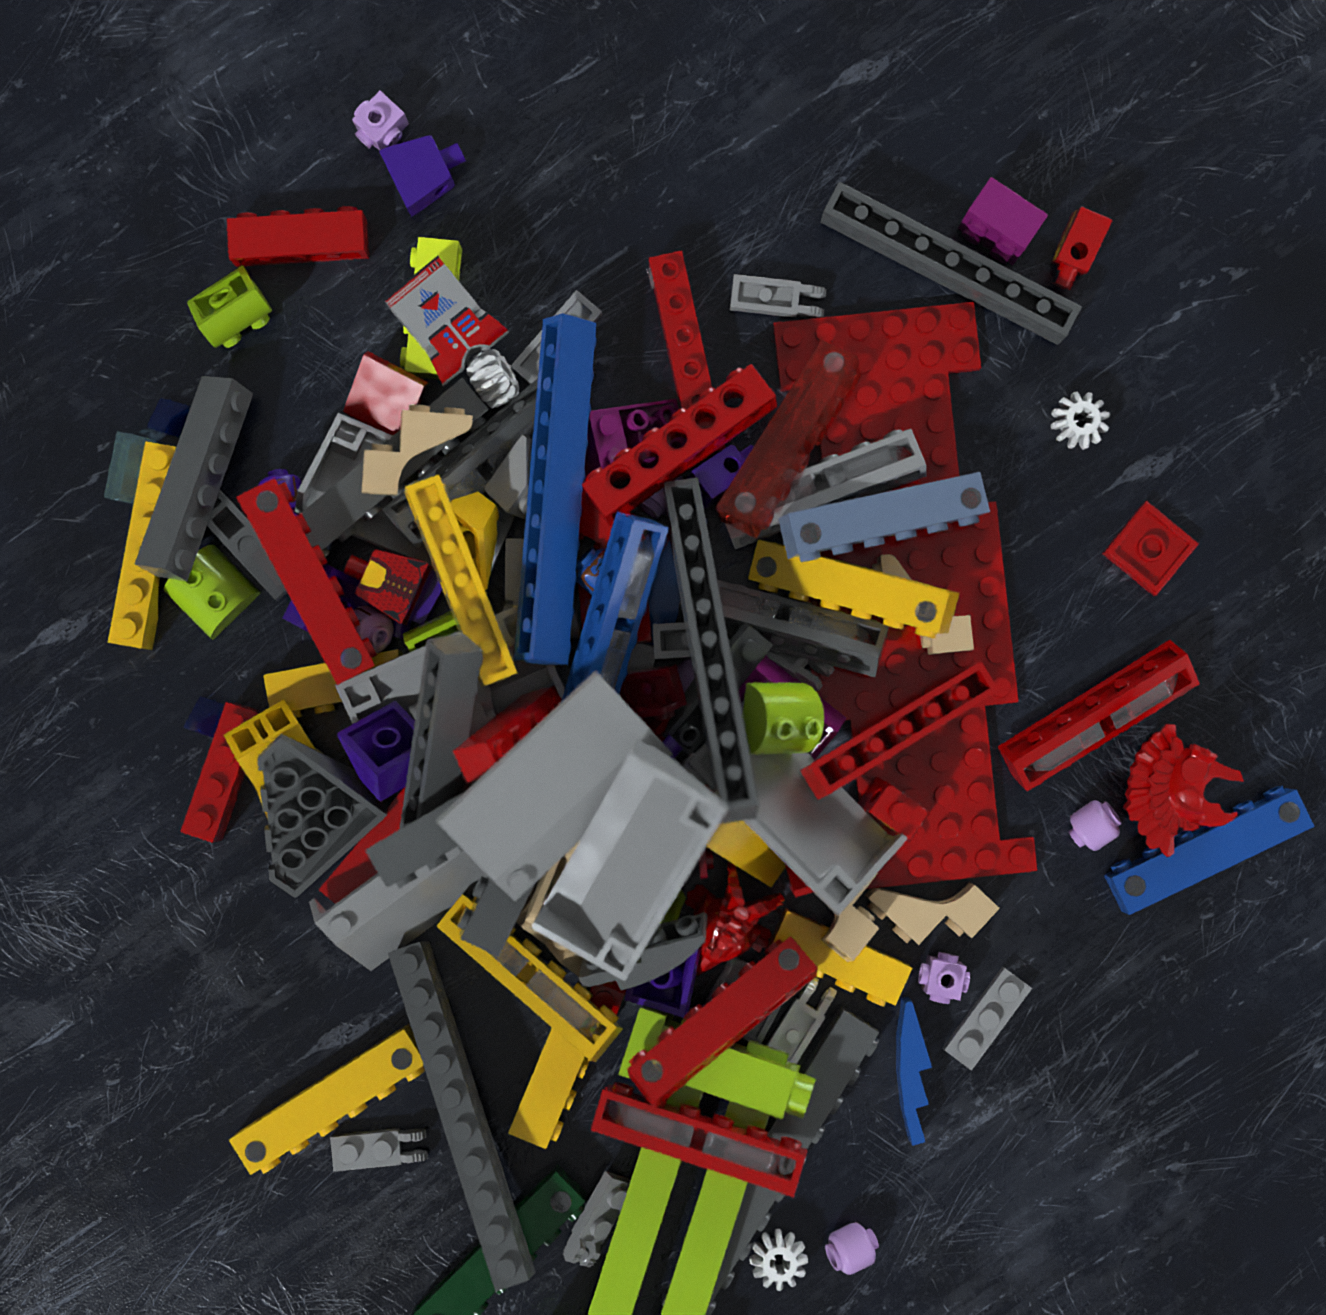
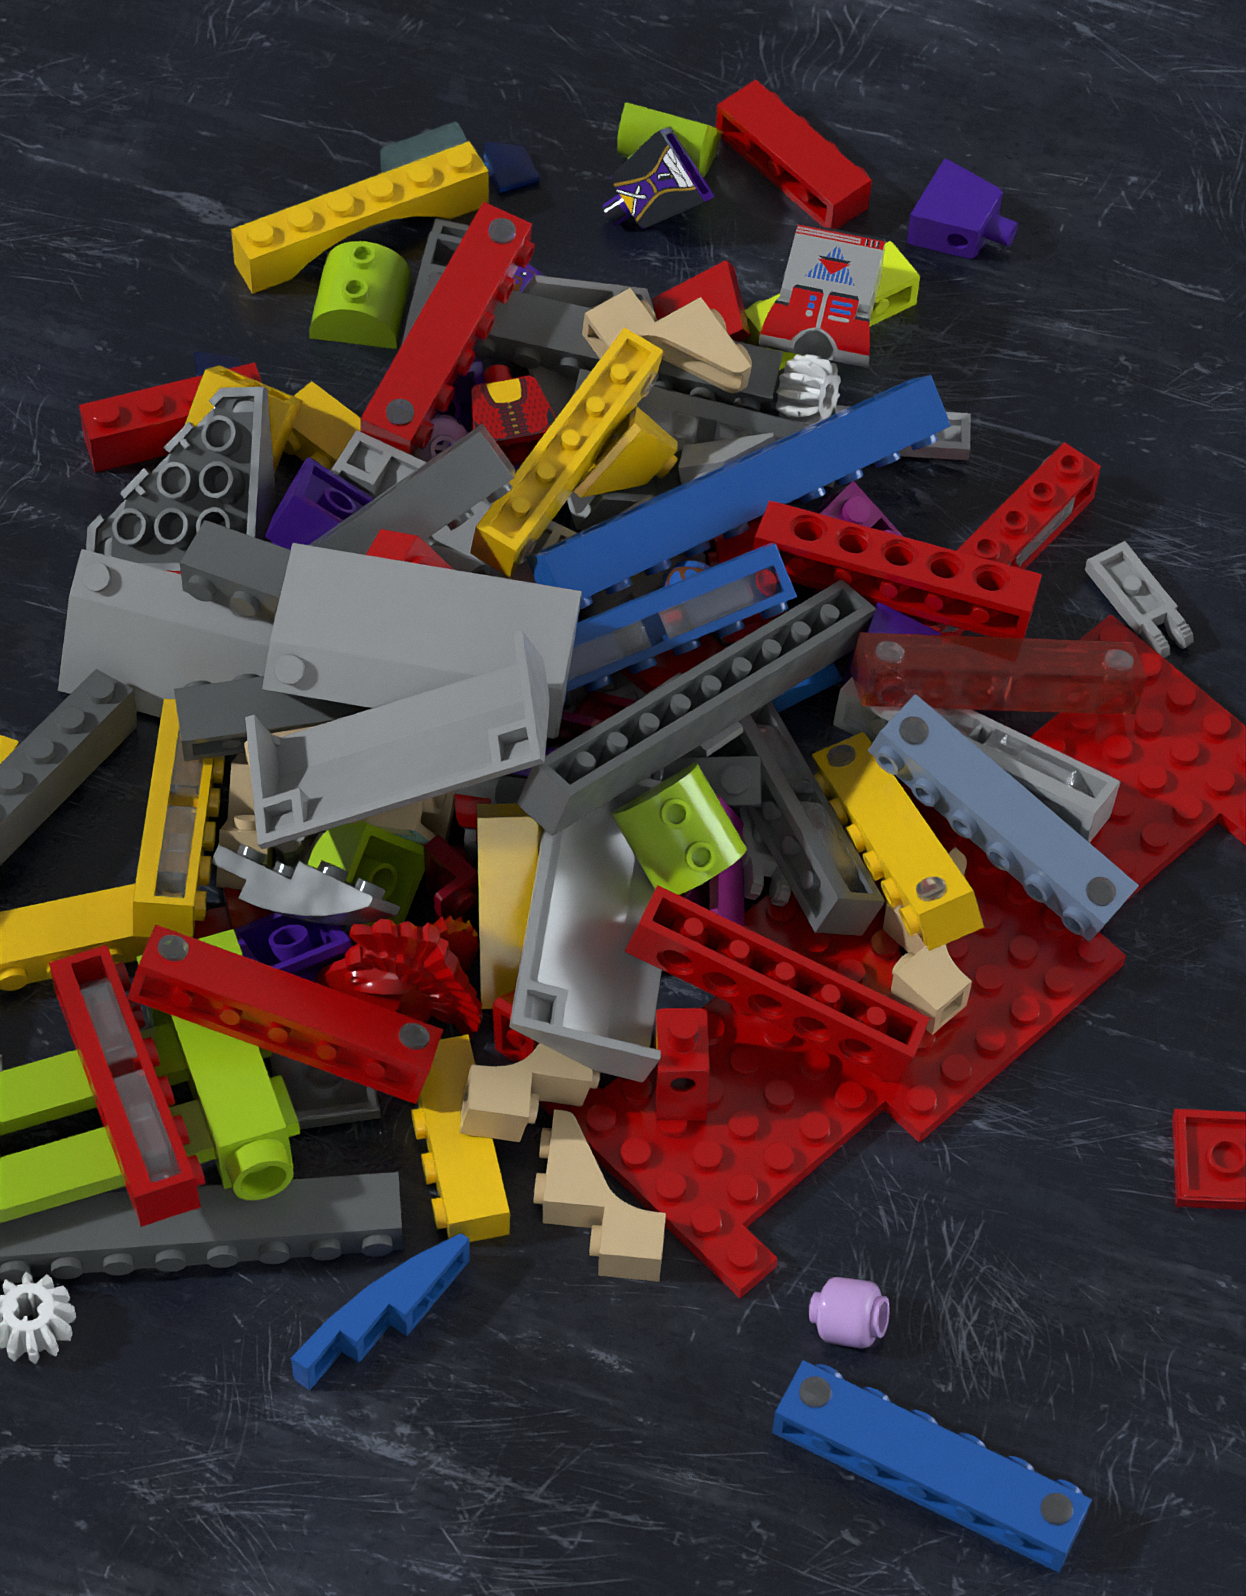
camera: 50 degrees right, 30 degrees down
(194, 478) = (452, 199): dark grey brick -> none
(267, 346) = (656, 183): none -> torso
(379, 122) = (974, 145): lavender brick -> none
(800, 1022) = (349, 1151): white hinge -> none
(851, 1248) = (106, 1390): lavender head -> none
(935, 968) = (525, 1265): lavender brick -> none
(987, 1018) = (514, 1362): light grey plate -> none
(1099, 715) = (981, 1221): red piece -> none
(1169, 788) = (970, 1342): red piece -> none

